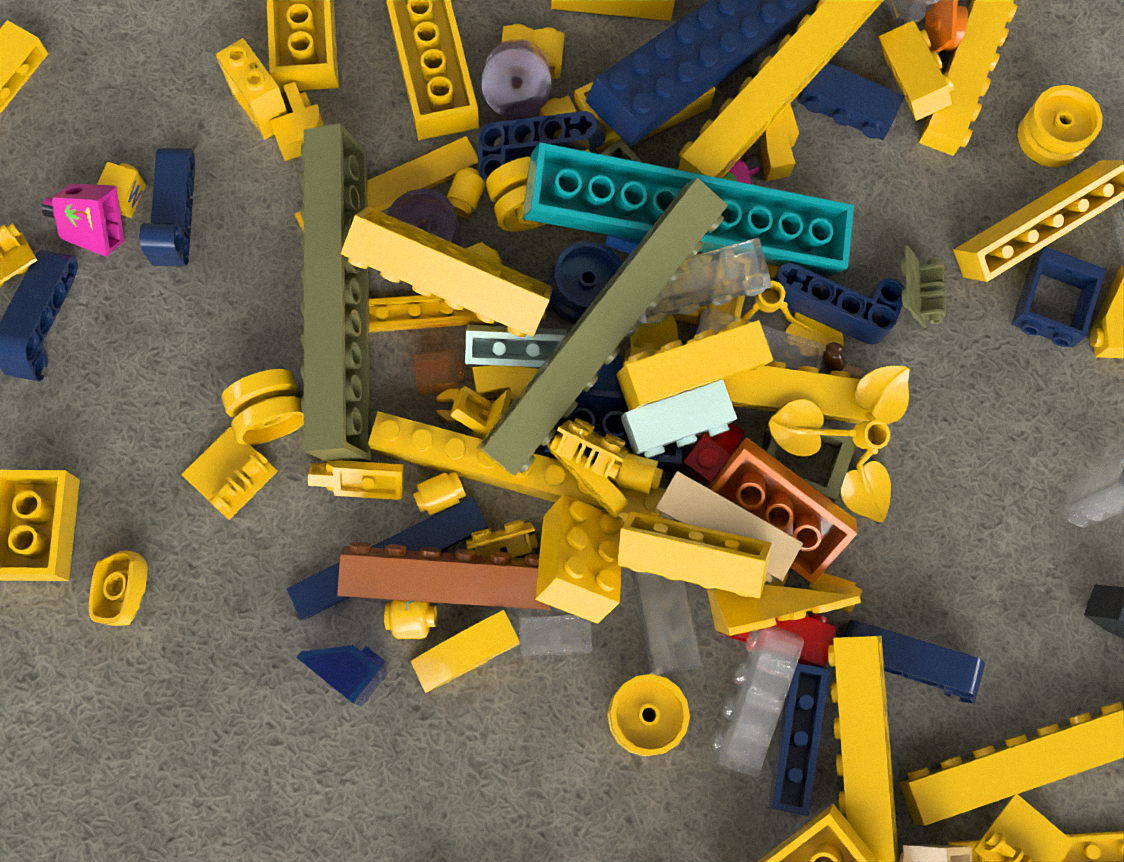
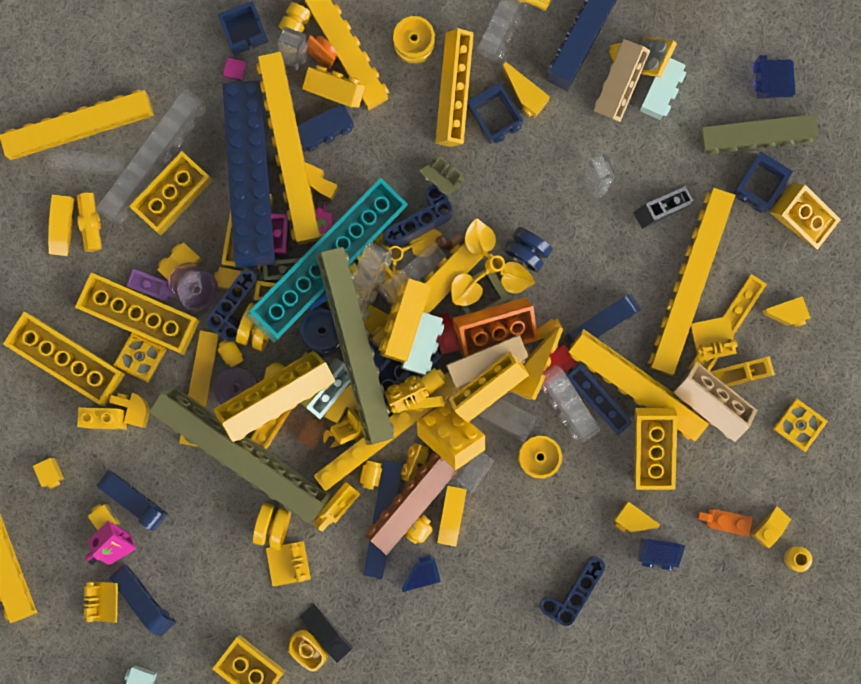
camera: 40 degrees left, 10 degrees up
(134, 81) = (48, 473): none -> yellow brick
(162, 599) = (326, 633): none -> black slope
(372, 87) = (140, 357): none -> yellow piece
(475, 33) = (148, 285): none -> medium lavender hinge
(666, 142) = (281, 234): none -> dark pink brick
(924, 473) = (528, 249): none -> dark blue wheel

